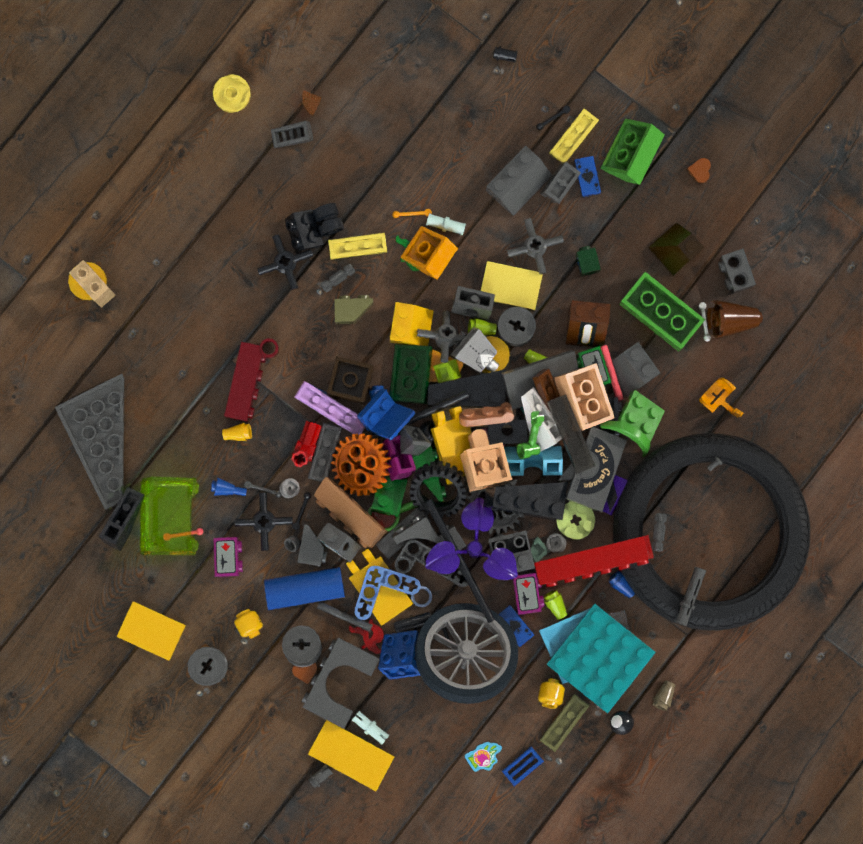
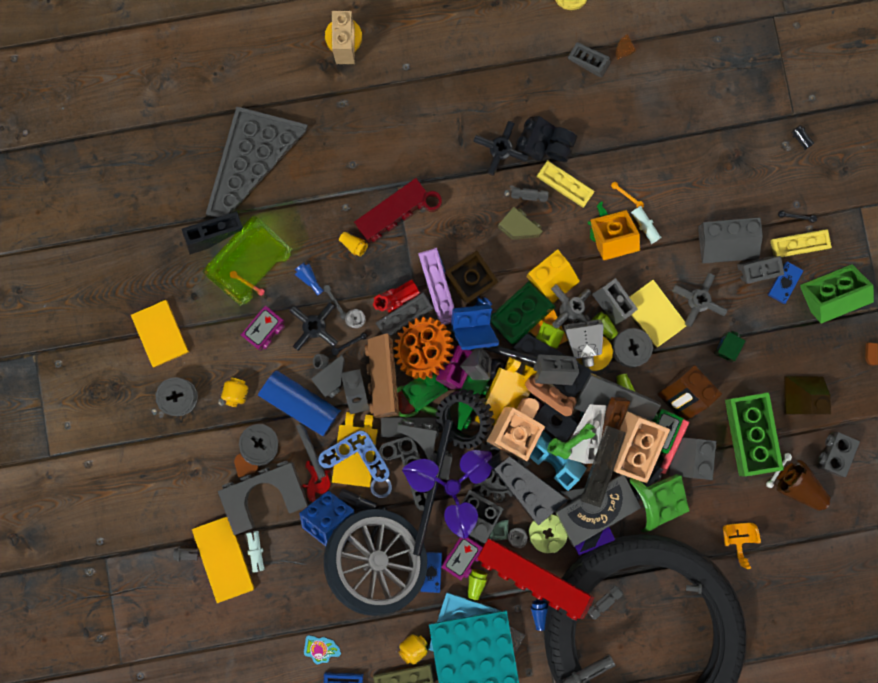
camera: 40 degrees right, 0 degrees up
(473, 393) = (556, 369): none -> dark grey hinge

